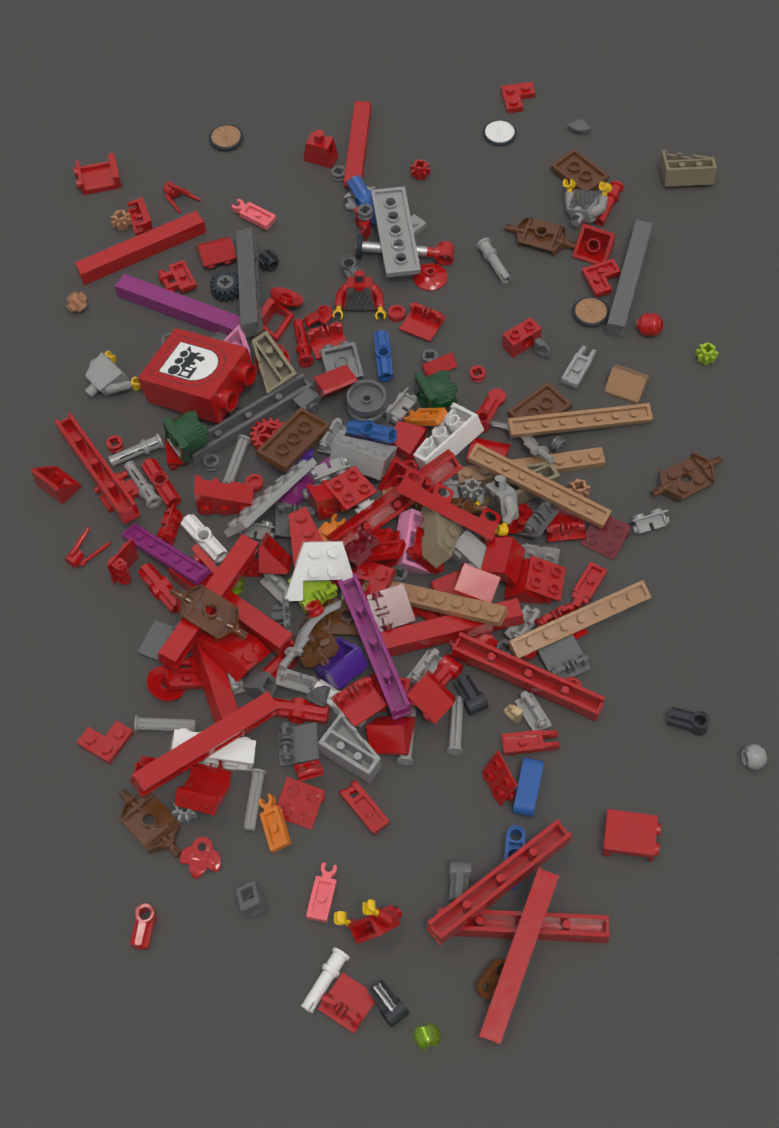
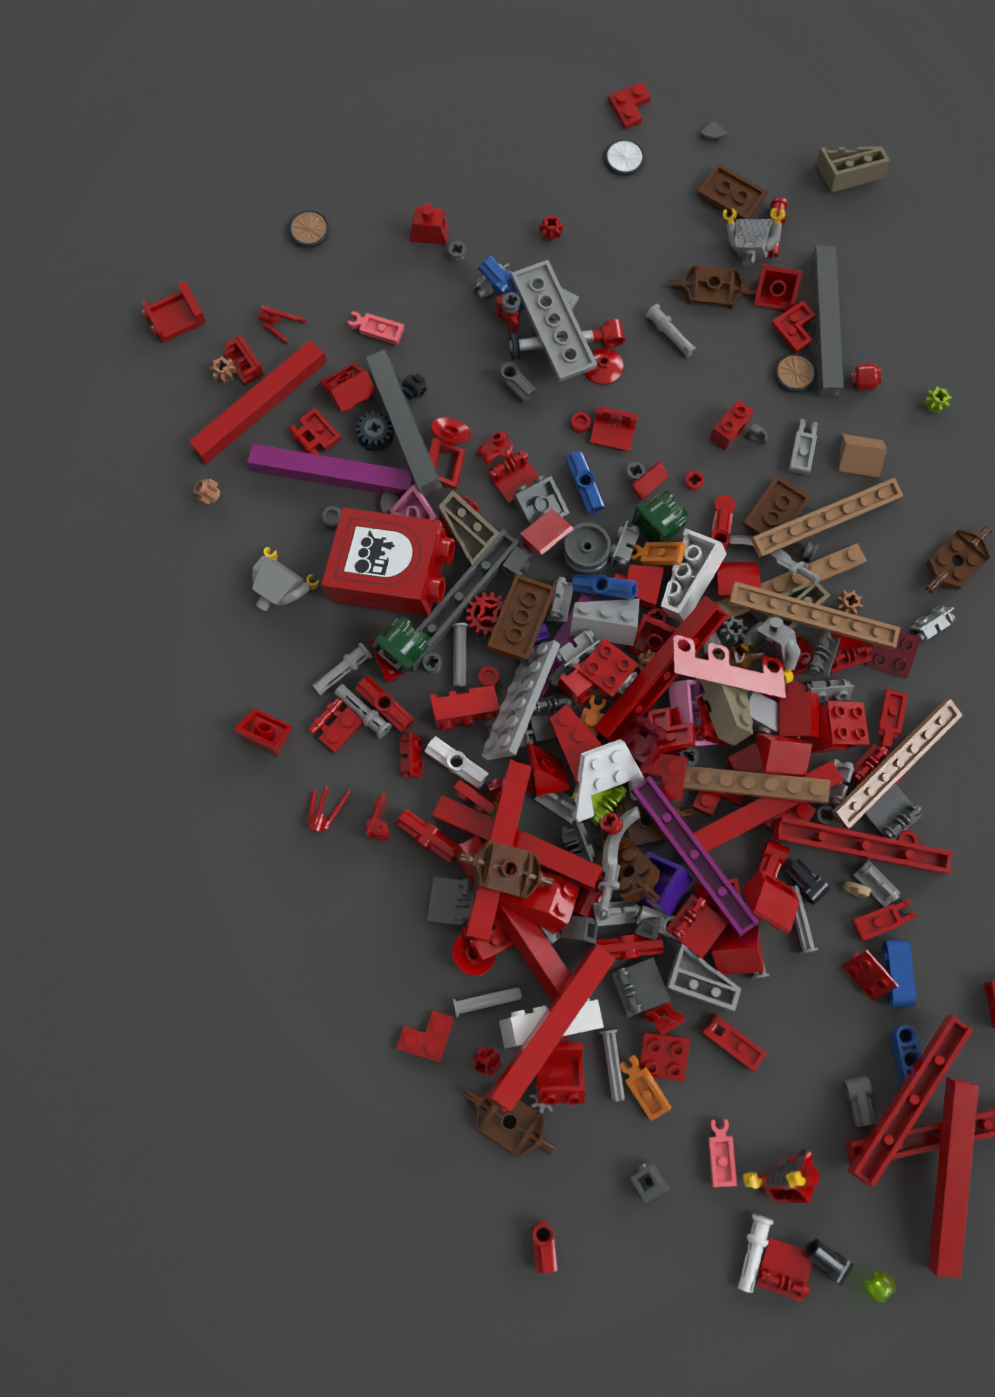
camera: 20 degrees left, 15 degrees up
(98, 469) = (308, 706): red tile -> none
(117, 448) = (318, 671): red bush -> none
(166, 554) = (422, 796): magenta tile -> none
(201, 860) = (578, 1150): red plate -> none
(303, 348) = (490, 492): red pin -> none
(358, 140) = (468, 207): red beam -> none
(359, 294) = (535, 410): torso -> none
(391, 607) = (696, 802): hinge -> none
(428, 661) = (747, 859): light grey hinge -> none
(489, 977) = (924, 1205): reddish brown plate -> none

